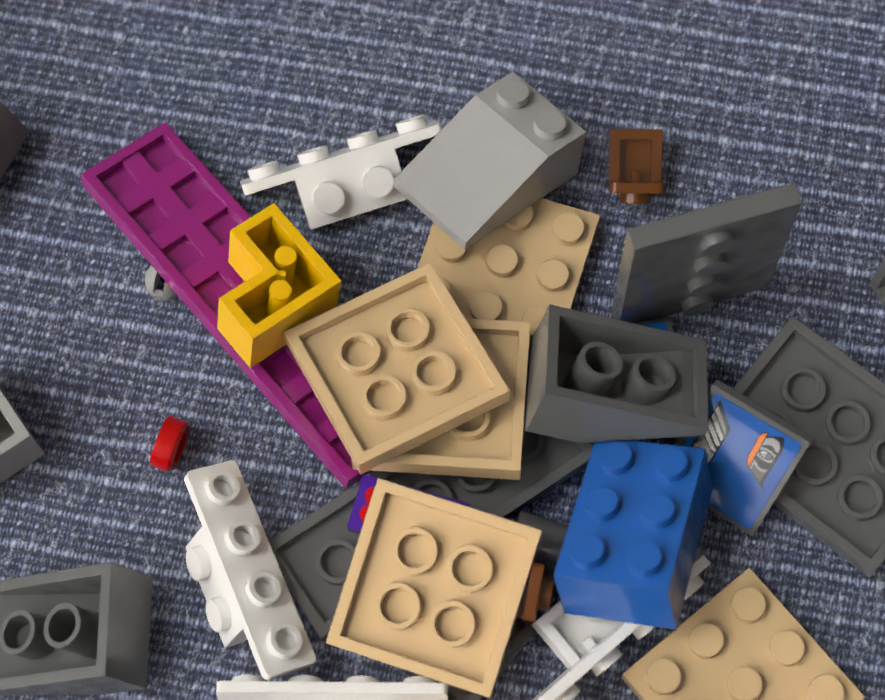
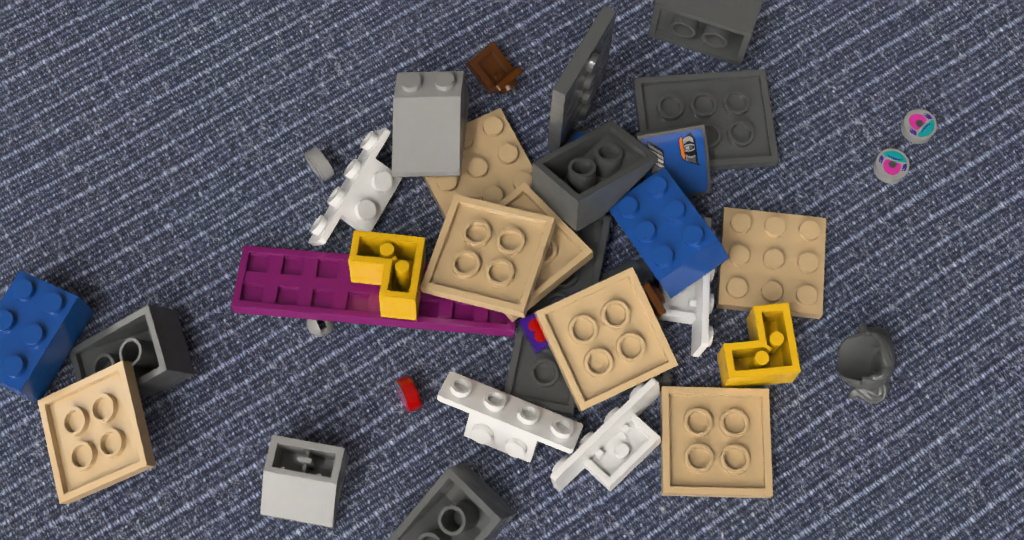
camera: 50 degrees left, 0 degrees up
(333, 103) = (319, 164): none -> light grey tile

